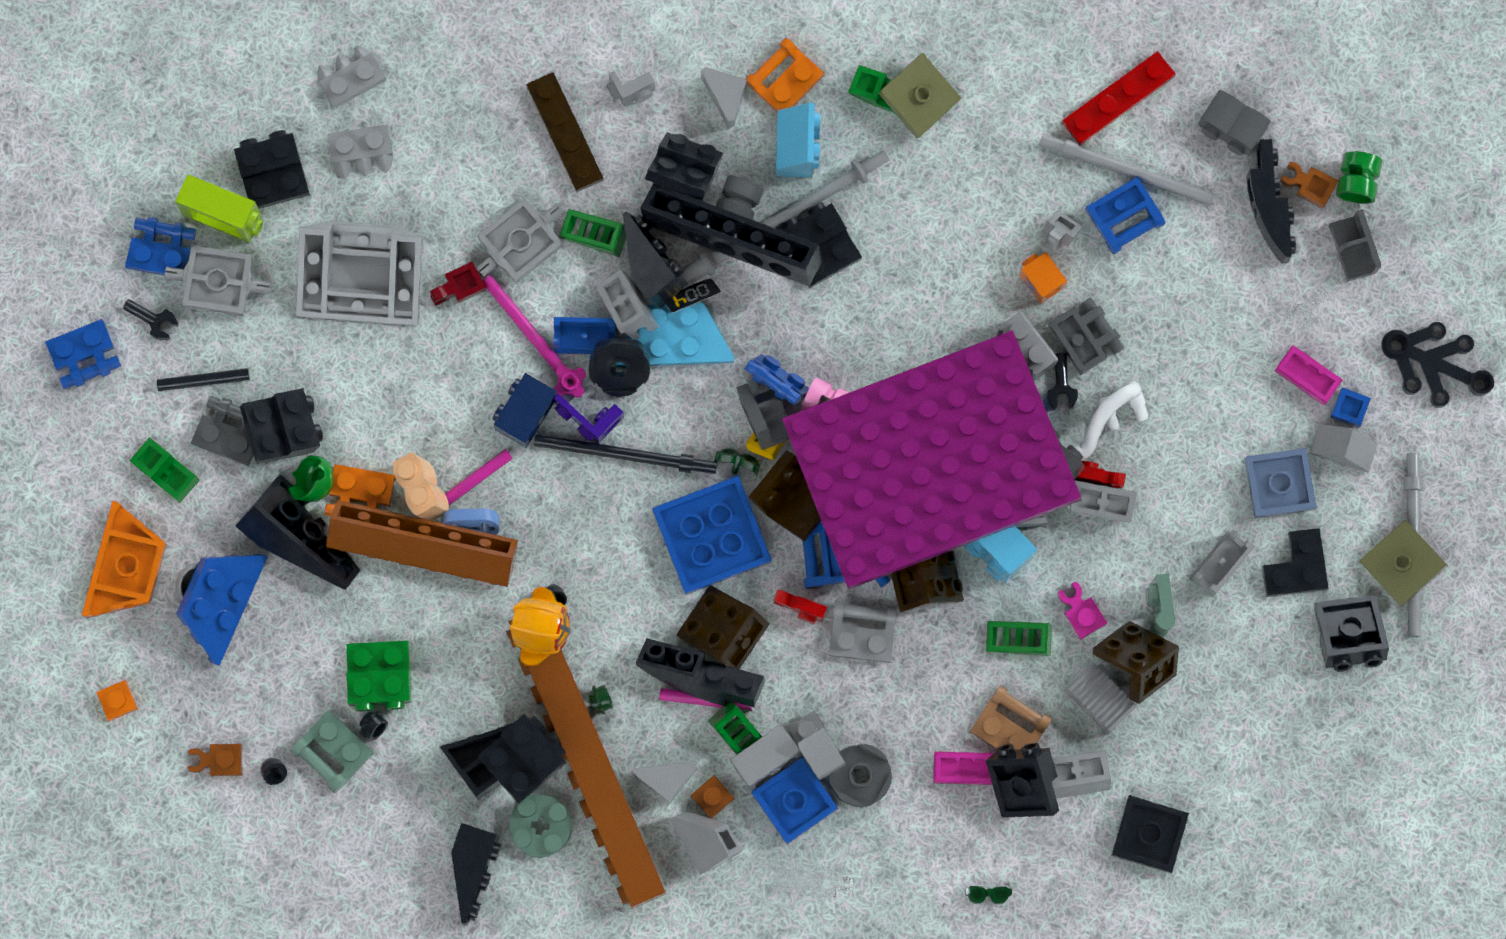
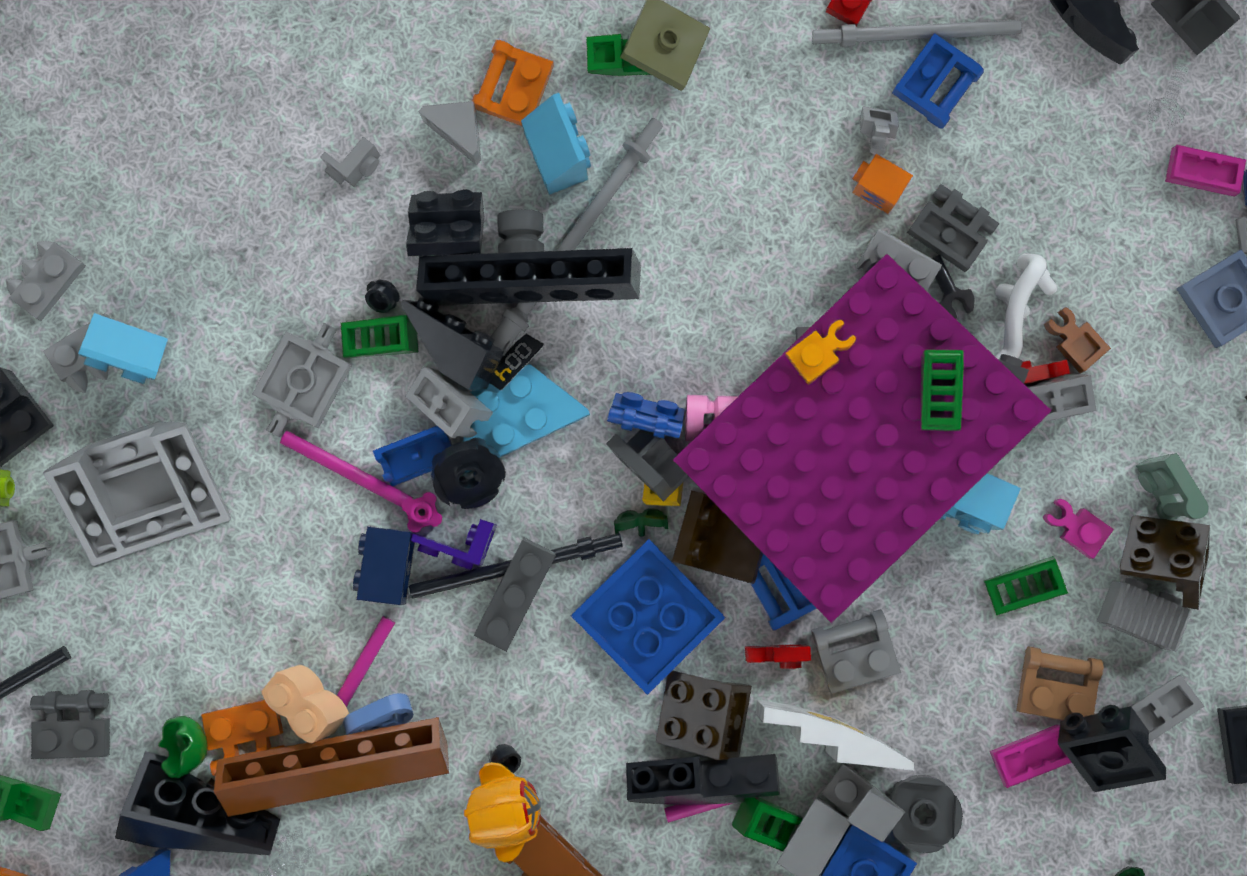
camera: 20 degrees left, 5 degrees up
(281, 426) = (122, 700): black plate -> none
(395, 159) = (122, 347): none -> medium azure slope
(462, 284) = (258, 454): dark red plate -> none
(565, 132) = (302, 241): dark brown plate -> none
(600, 699) = (604, 851): dark green plate -> none
(610, 201) = (381, 296): none -> black plate
(615, 474) = (515, 594): none -> dark grey plate
(823, 688) = (842, 740): none -> white slope
(830, 233) = (630, 228): black plate -> none
(922, 382) = (816, 354): none -> light orange plate
(928, 583) = (910, 578): dark brown bracket -> none
(1013, 421) = (953, 357): none -> green slope
(1145, 469) = (1080, 344): none -> dark orange plate
(1221, 563) = (1208, 411): light grey hinge -> none

